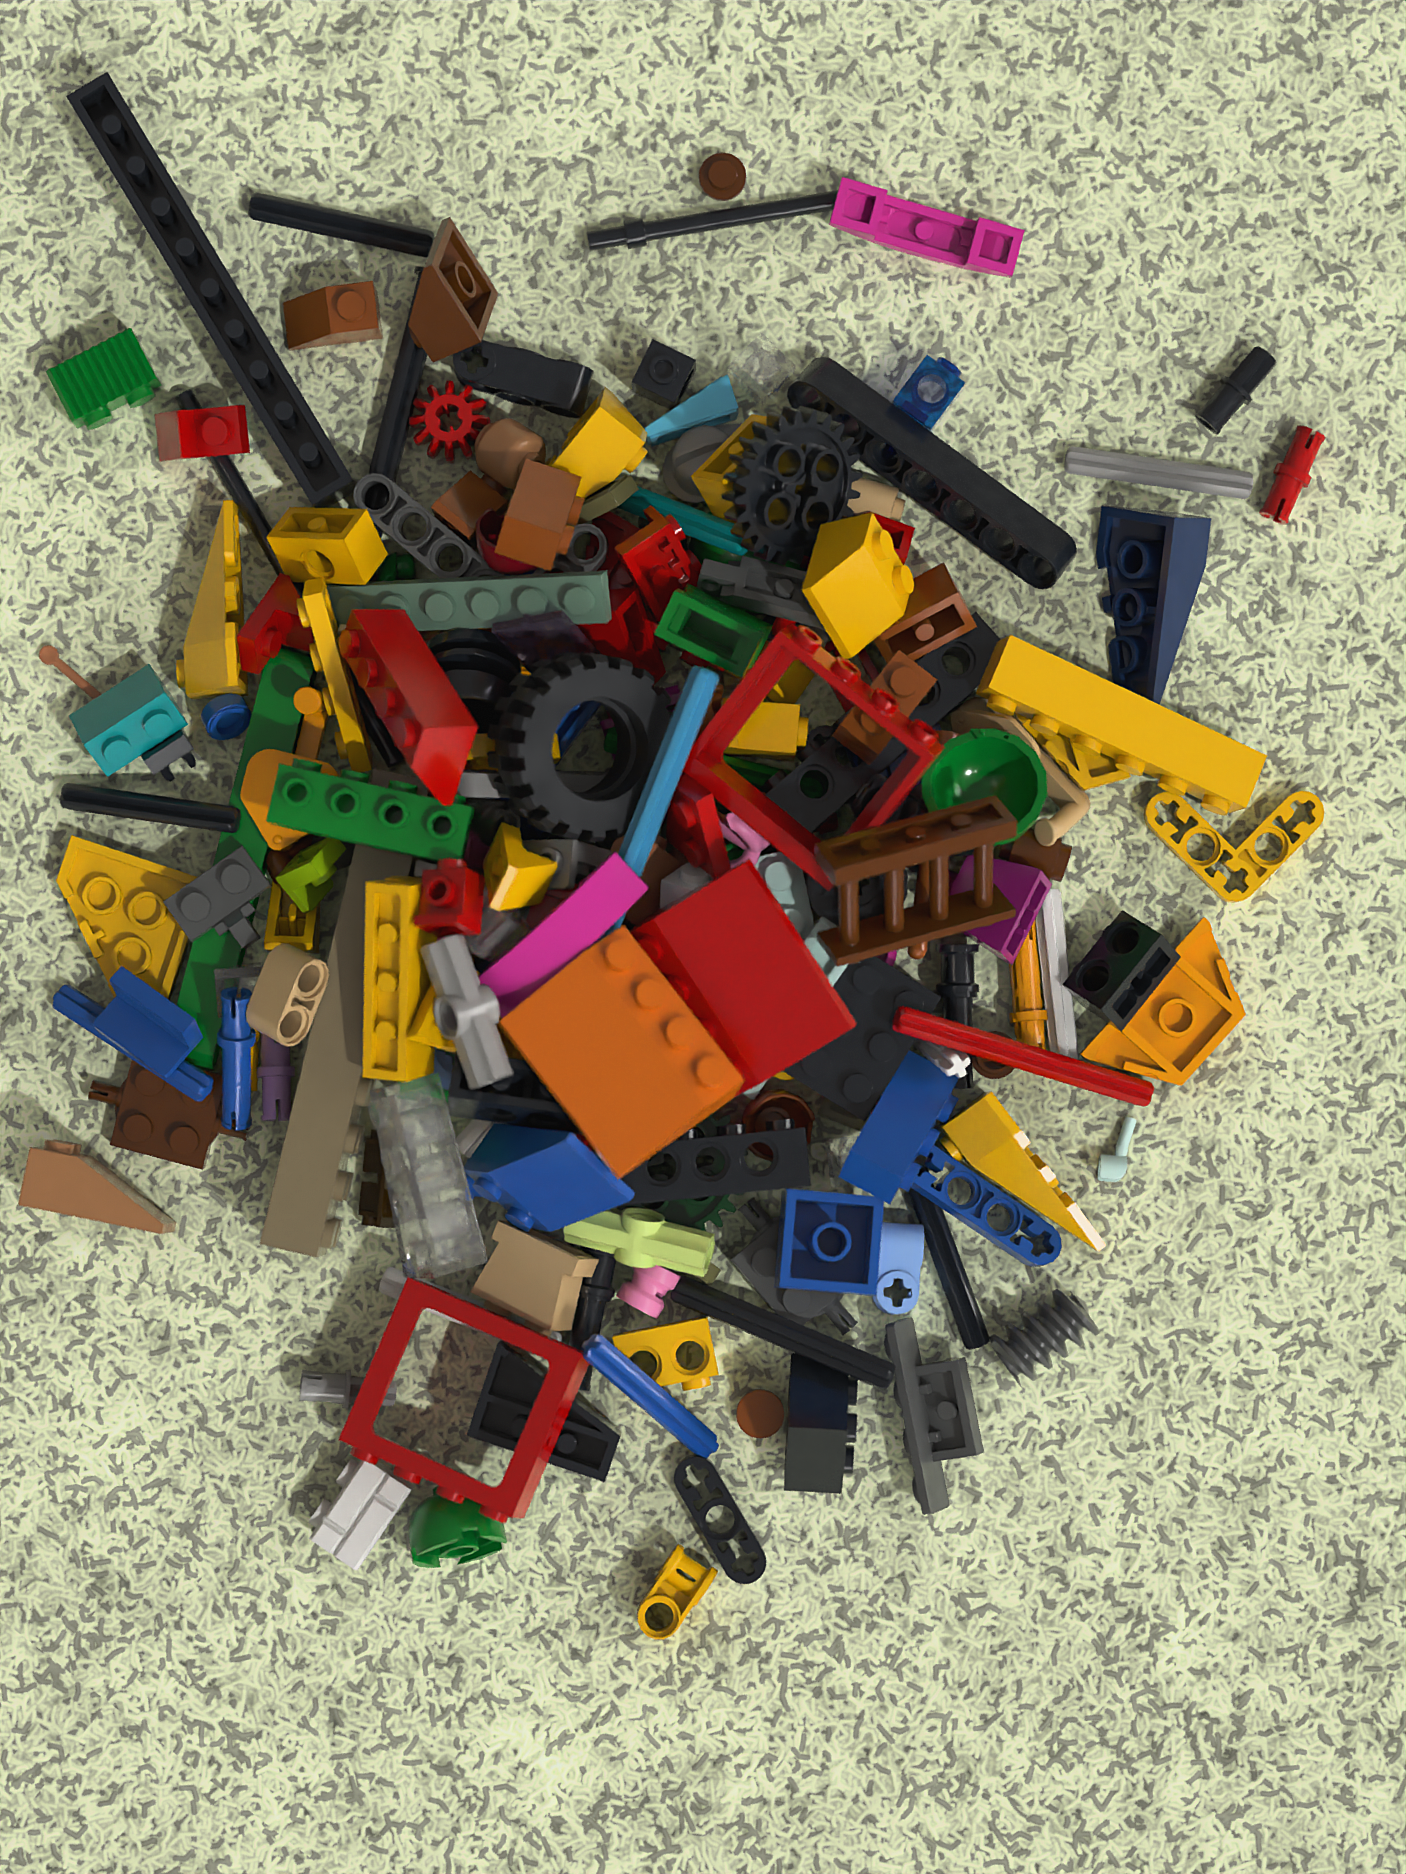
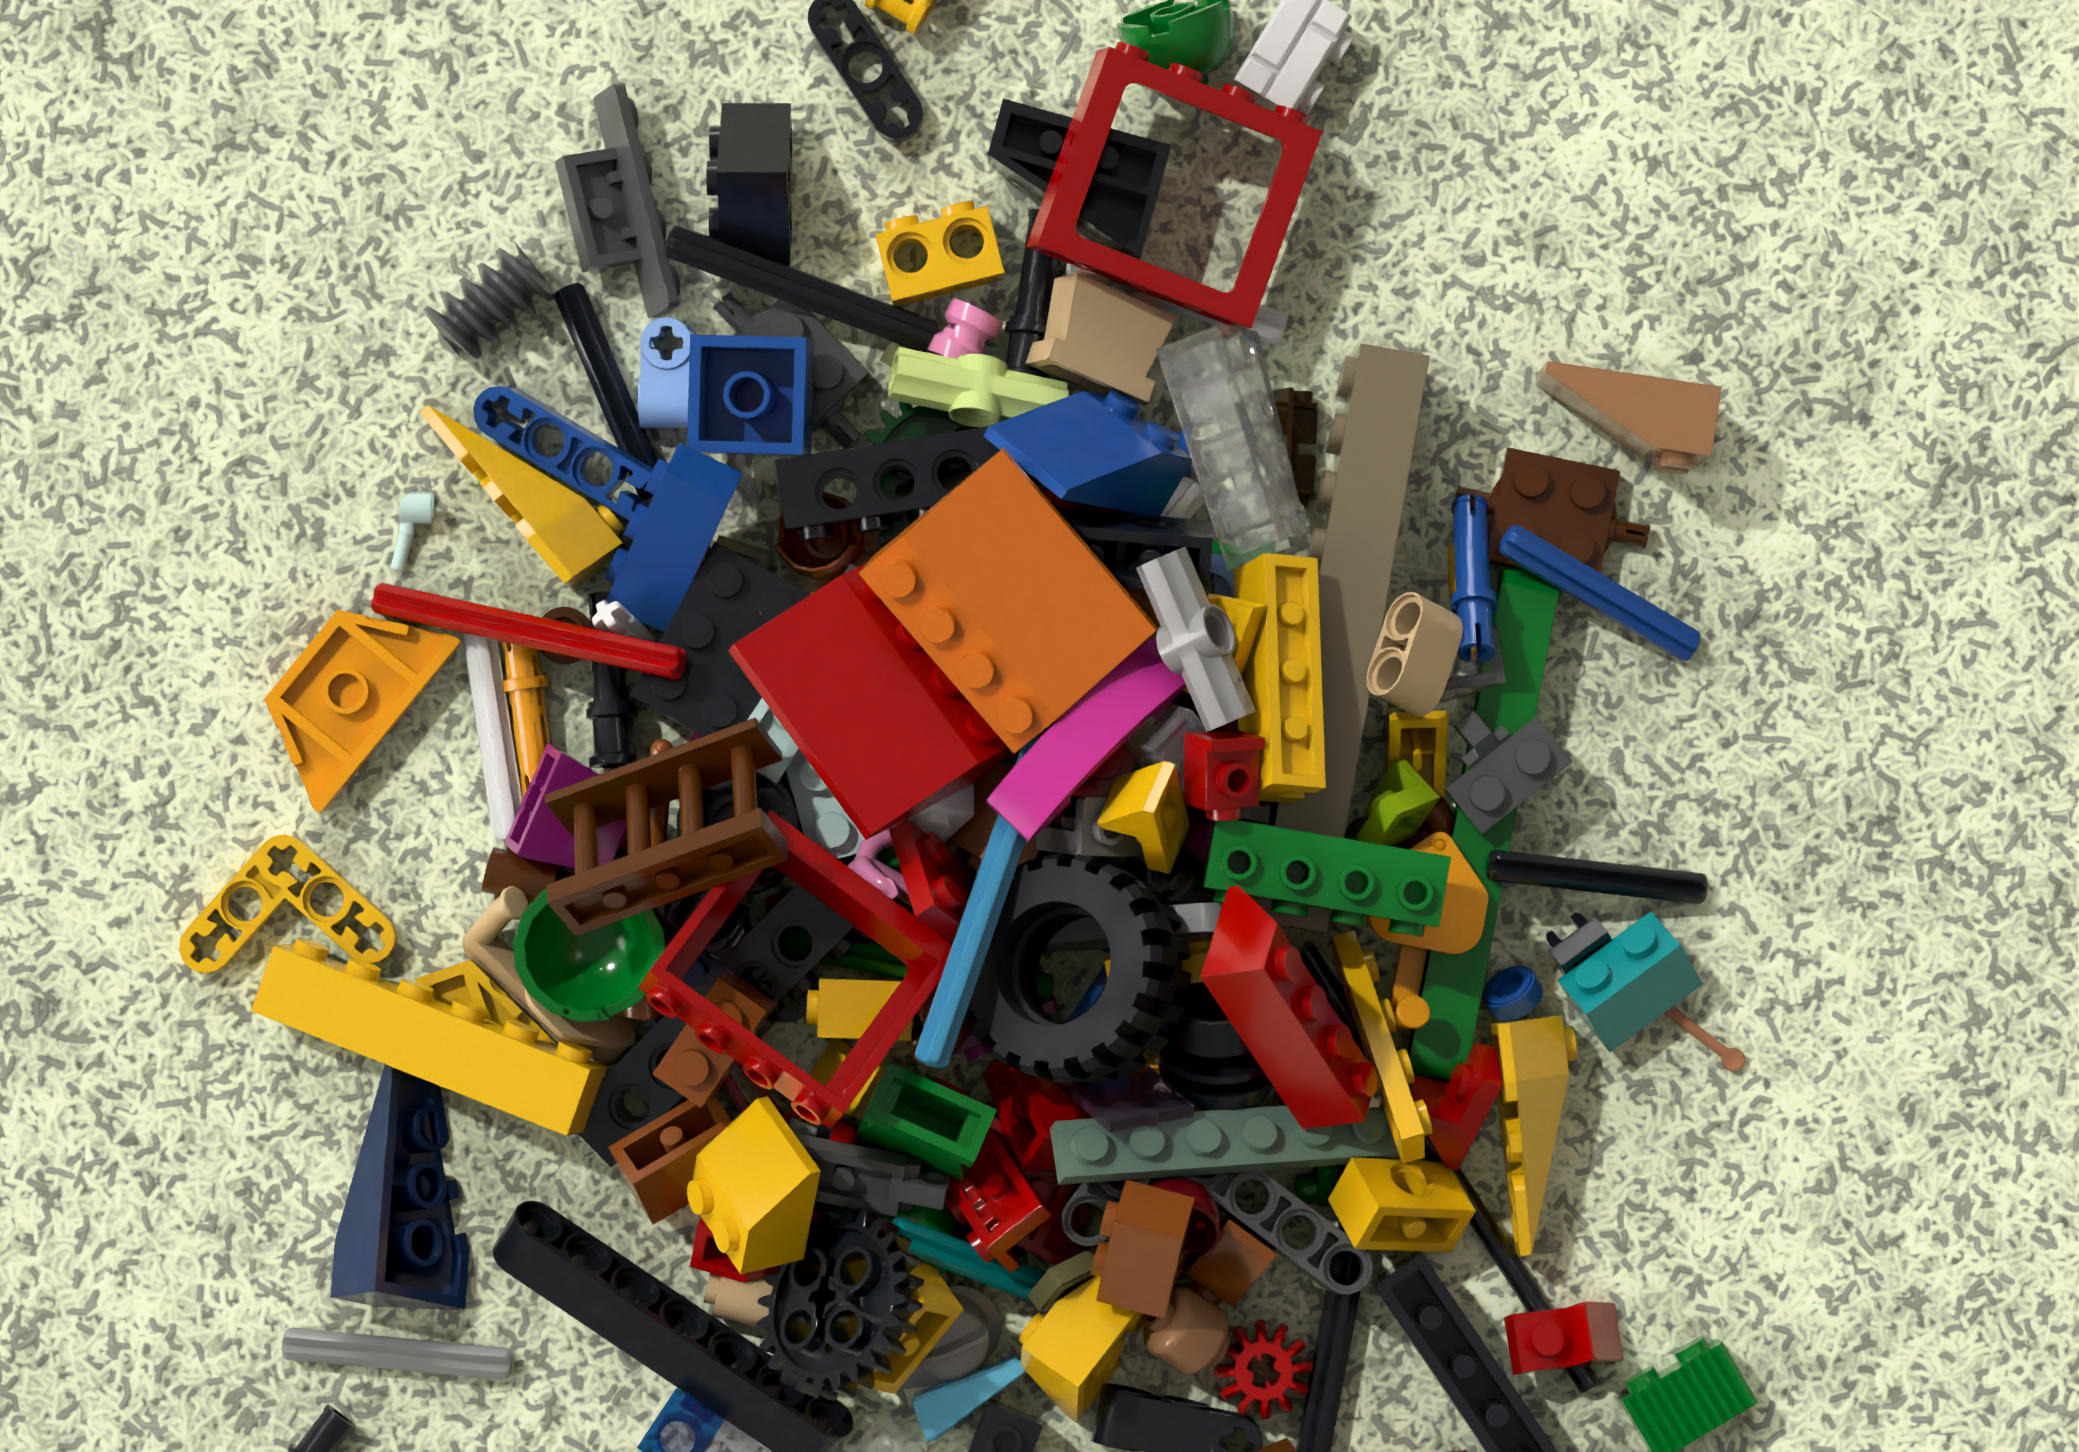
camera: 175 degrees right, 0 degrees up
(124, 912) = (1618, 739): yellow plate -> none
(147, 1025) = (1582, 612): blue panel -> none
(276, 1079) = (1425, 556): lavender pin -> none
(336, 1388) = (1331, 196): light grey axle -> none
(649, 1396) = (955, 203): blue axle -> none
(760, 1413) = (824, 194): dark orange tile -> none
(1121, 970) = (406, 736): black brick -> none
(1292, 475) = (234, 1359): red pin -> none

